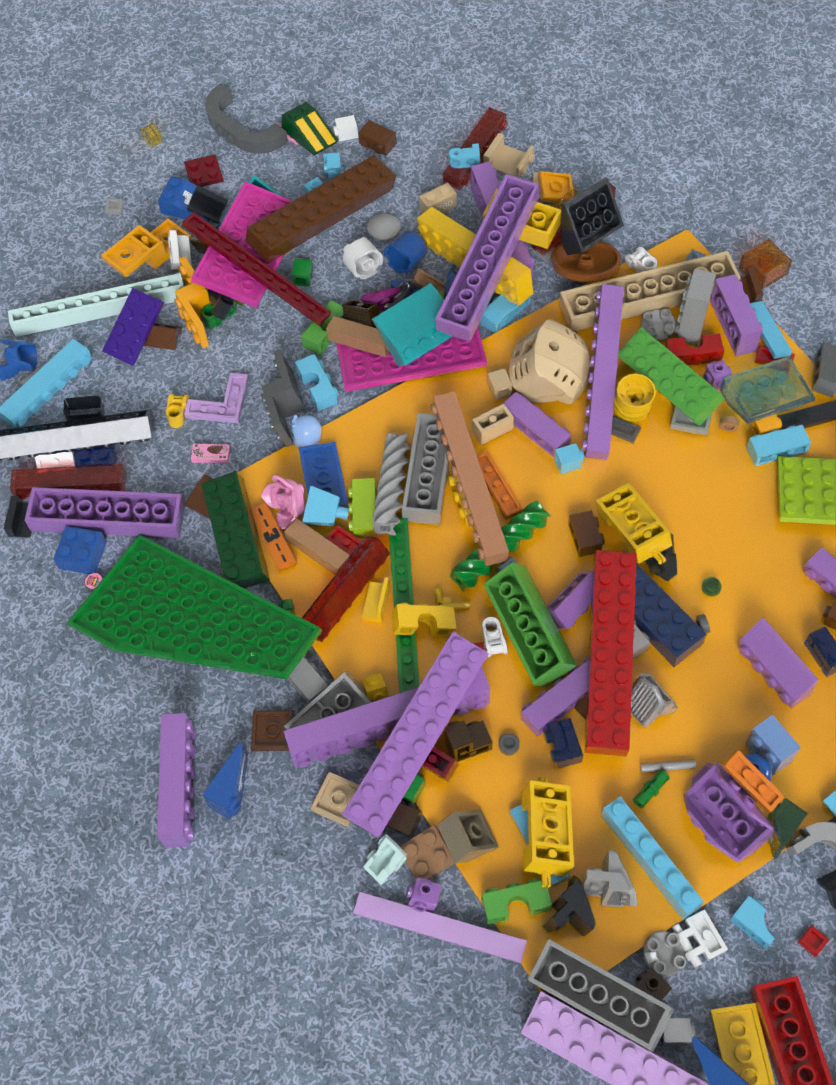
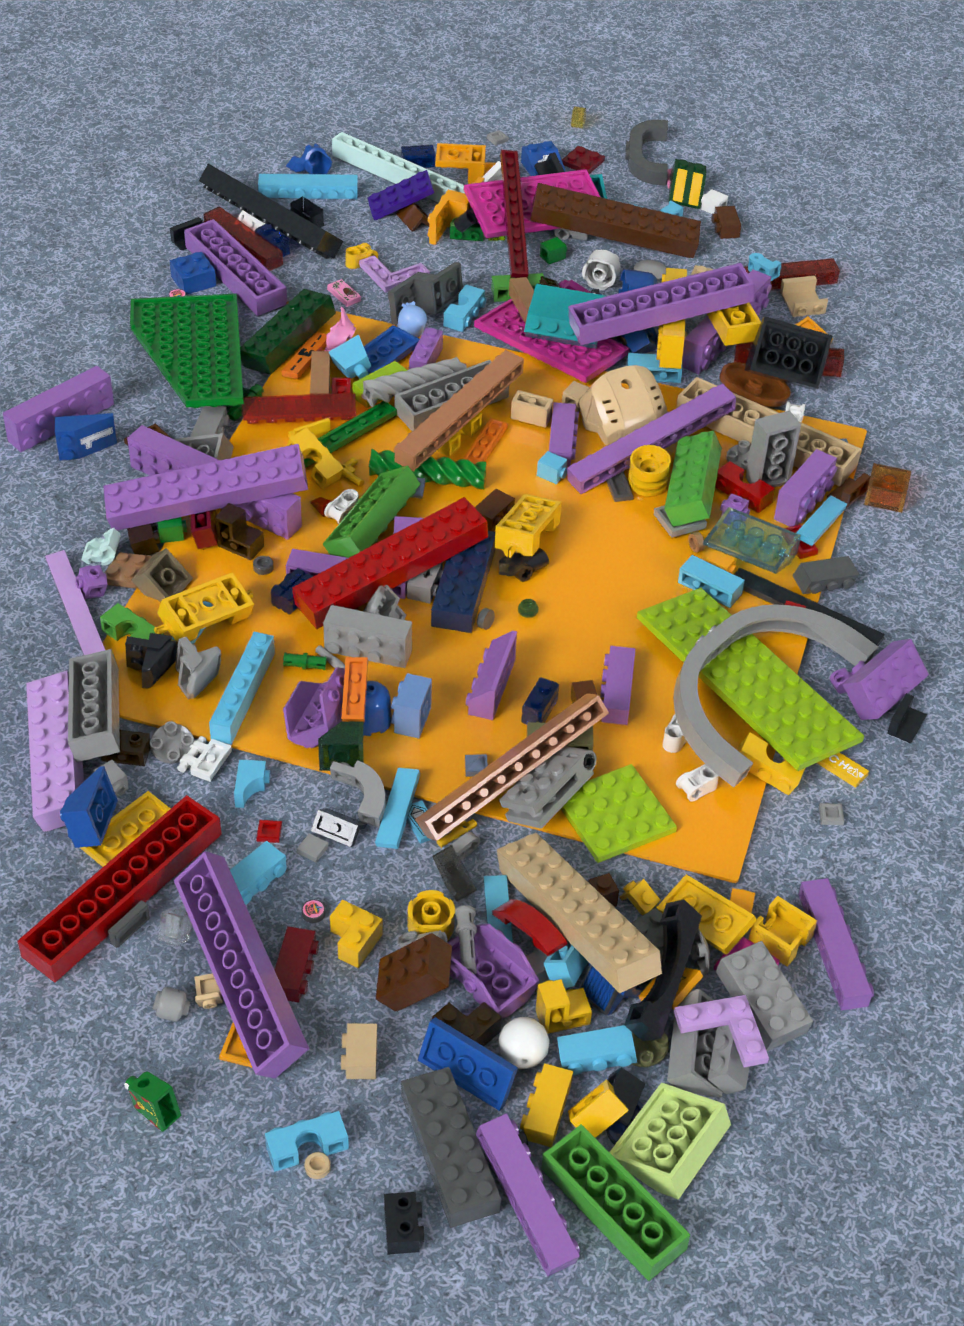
camera: 45 degrees right, 15 degrees down
(86, 277) = (421, 155): none -> clear blue brick
(356, 449) = (427, 348): none -> medium lavender brick
(670, 725) = (368, 635): none -> light grey brick

